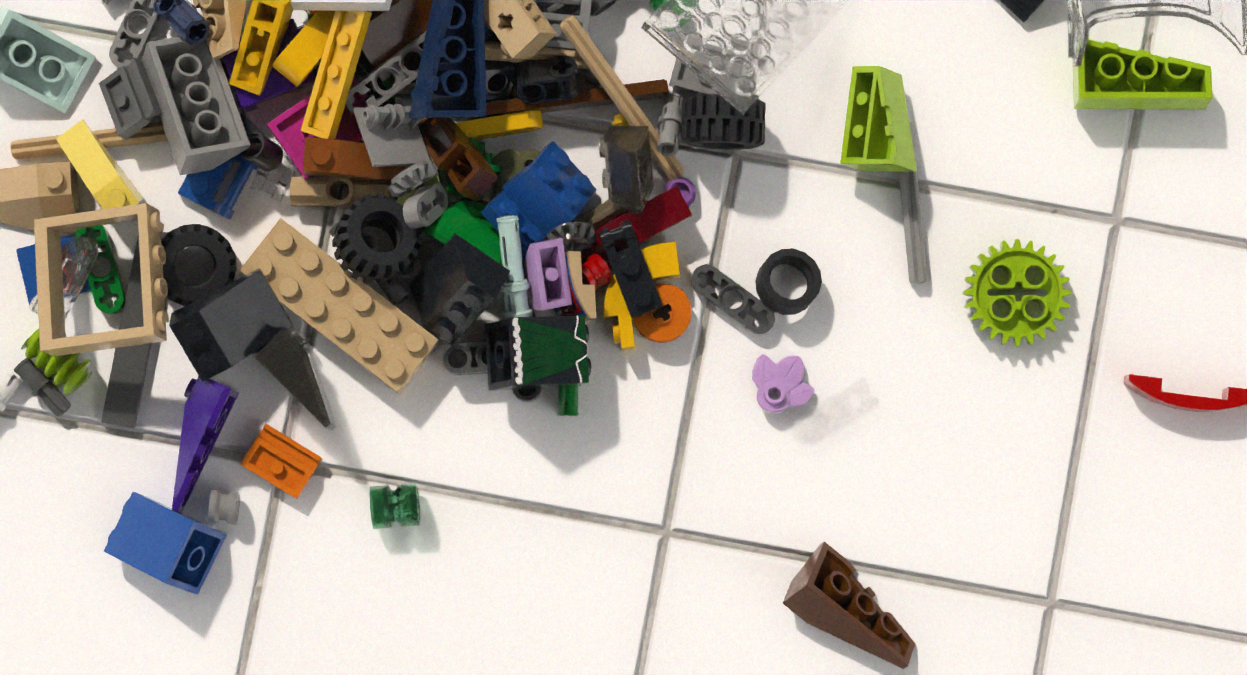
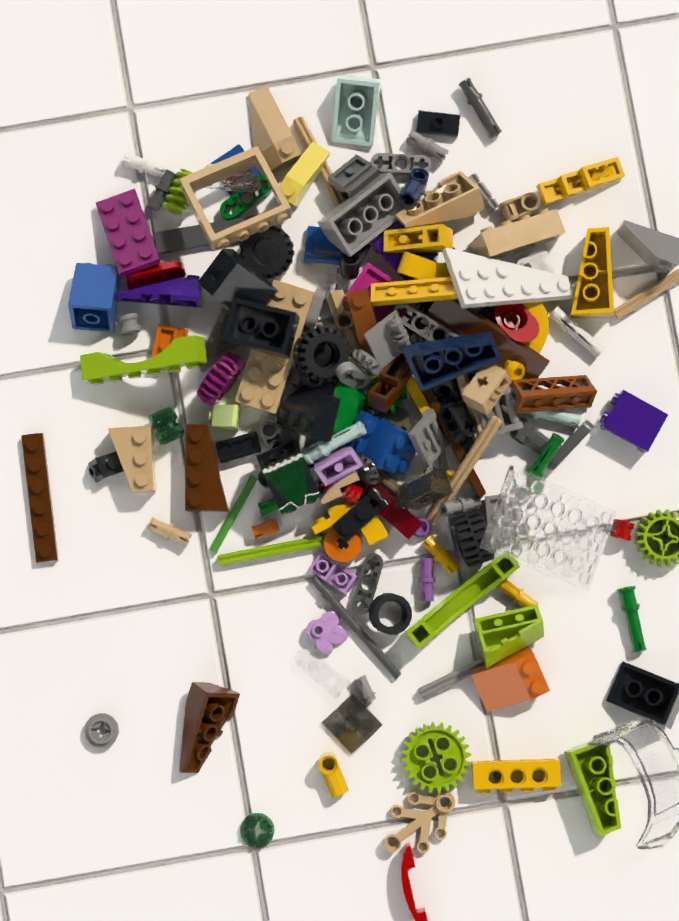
camera: 70 degrees right, 0 degrees up
(87, 459) = (127, 232): none -> magenta plate
(164, 443) = (156, 274): none -> red plate
(299, 440) = (182, 352): none -> lime arch
(304, 226) = (315, 308): none -> light grey beam
(306, 311) = (261, 328): none -> black slope
(356, 401) = (220, 378): none -> magenta gear
(414, 415) = (225, 417): none -> yellowish green slope
(421, 617) = (105, 466): none -> black bracket
(422, 565) = (136, 456): none -> tan wedge
(465, 413) = (238, 447): none -> black plate
(489, 479) = (202, 474): none -> reddish brown wedge
(551, 558) = (169, 531): none -> tan pin
(556, 132) = (424, 441): none -> light grey plate
(560, 456) = (233, 514): none -> bright green bar
(598, 416) = (265, 528): none -> orange pin
(633, 422) = (269, 550): none -> lime axle
(699, 343) = (333, 573): none -> lavender slope
(728, 362) = (328, 595): none -> dark grey bar
(730, 178) = (440, 555): none -> yellow pin
(758, 211) = (426, 579): none -> medium lavender pin
(805, 174) = (460, 600): none -> lime arch
(826, 91) = (518, 595): none -> yellow axle
(883, 358) = (364, 689): none -> light grey pin
(925, 394) = (352, 723): none -> clear smoke slope
(947, 145) = (510, 681): none -> orange slope
(991, 449) = (333, 776): none -> yellow piece
(1014, 593) = (265, 824): none -> clear green gear
(1089, 136) = (550, 780): none -> yellow brick
(1098, 345) = (422, 819): none -> tan plant

